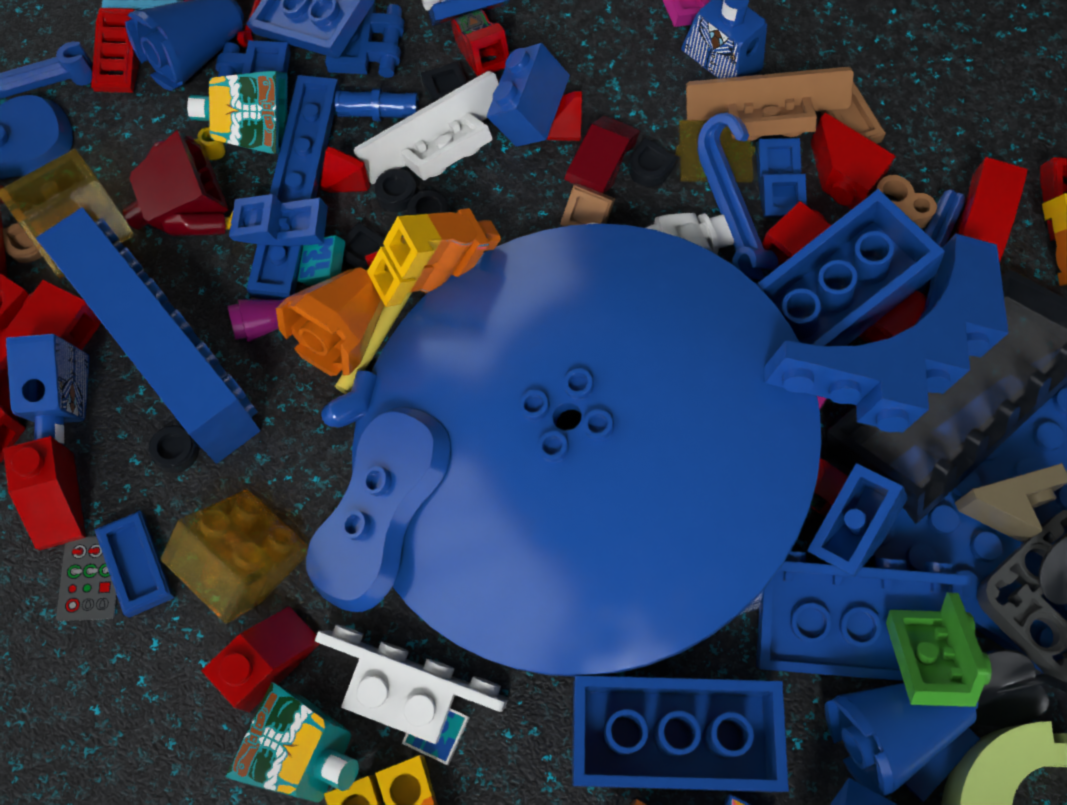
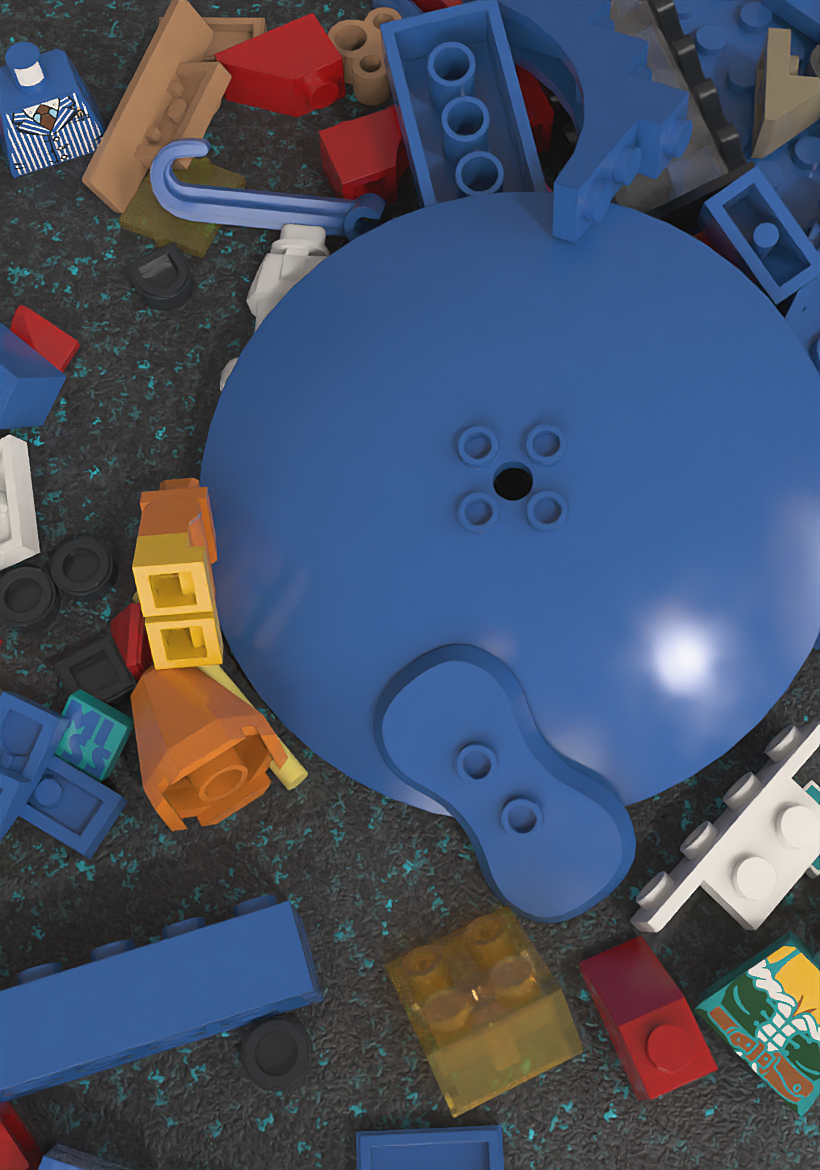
camera: 65 degrees left, 0 degrees up
(253, 318) = (134, 857): magenta cone -> none
(352, 405) = (331, 773): blue arm -> none
(586, 207) = (193, 372): medium nougat tile -> none
(601, 154) = (125, 322): dark red slope -> none
(780, 175) = (273, 154): blue slope -> none

